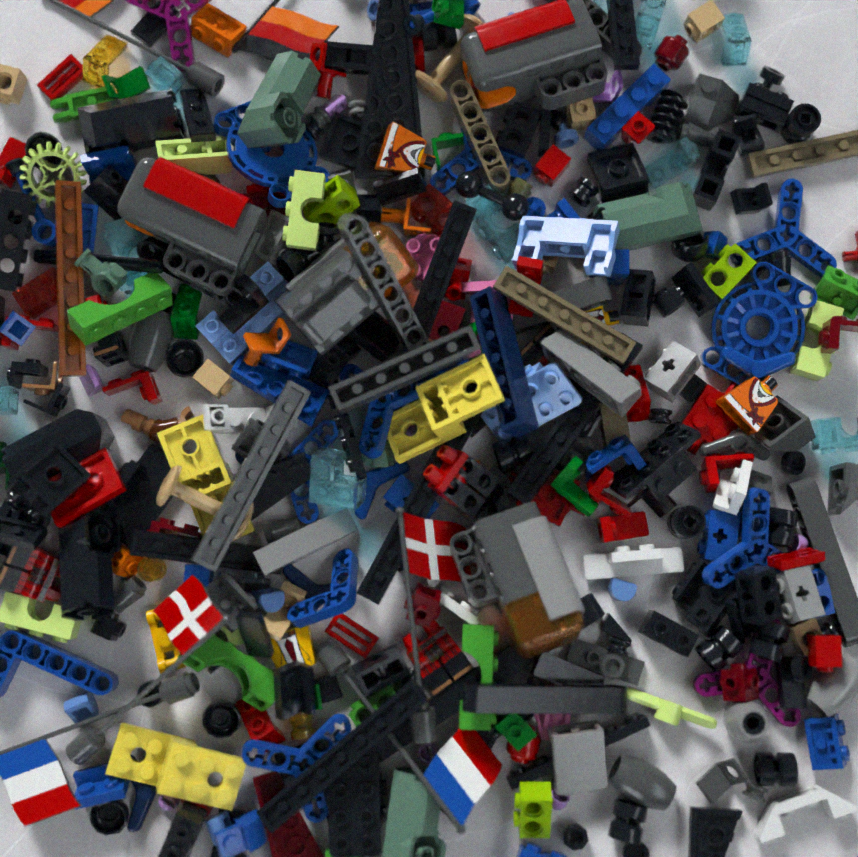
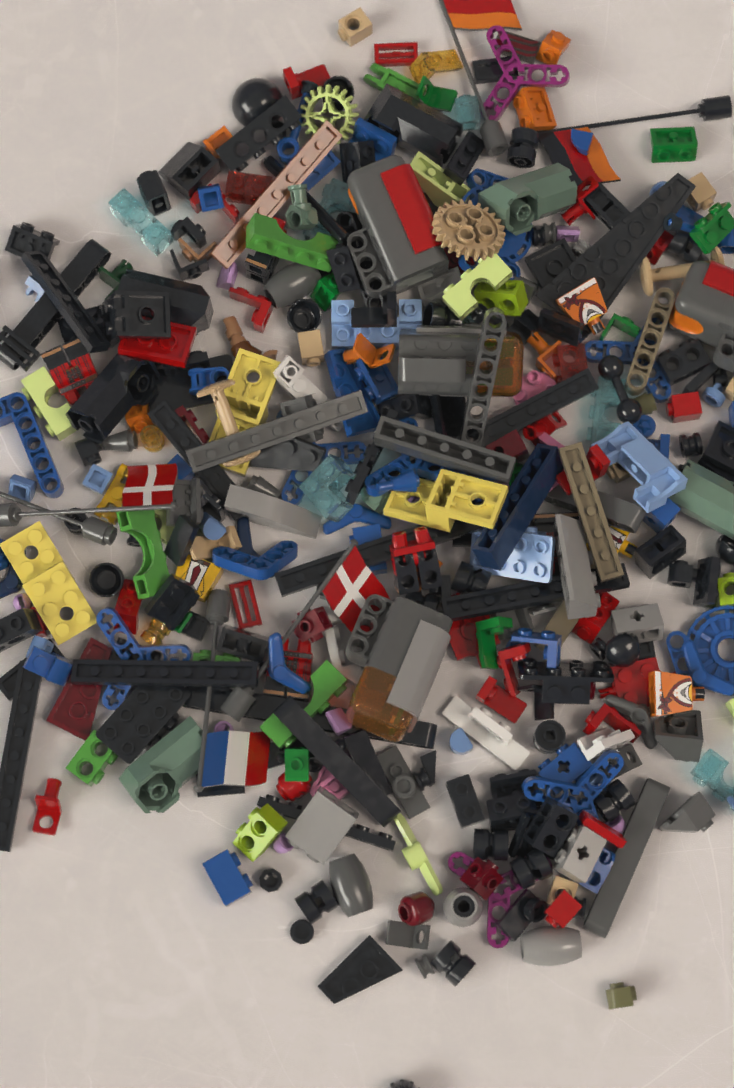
camera: 45 degrees right, 5 degrees down
(138, 643) = (98, 479): none -> medium blue tile
(150, 482) = (205, 376): none -> blue piece
(182, 291) = (343, 268): none -> black hinge
(237, 69) = (523, 147): none -> black wheel
(258, 170) = (468, 230): none -> tan gear
(278, 21) = (581, 140): none -> blue tile
(394, 422) = (404, 482): none -> blue cone
(433, 668) = (279, 671): none -> blue piece
(514, 663) = (338, 721): none -> lavender slope
(682, 402) = (623, 650): none -> black hair
(708, 753) = (416, 909): none -> dark red head
(770, 826) = (472, 1026): white slope -> none
(793, 463) = (666, 767): black tile -> none
(826, 742) = (507, 980): blue bracket -> none

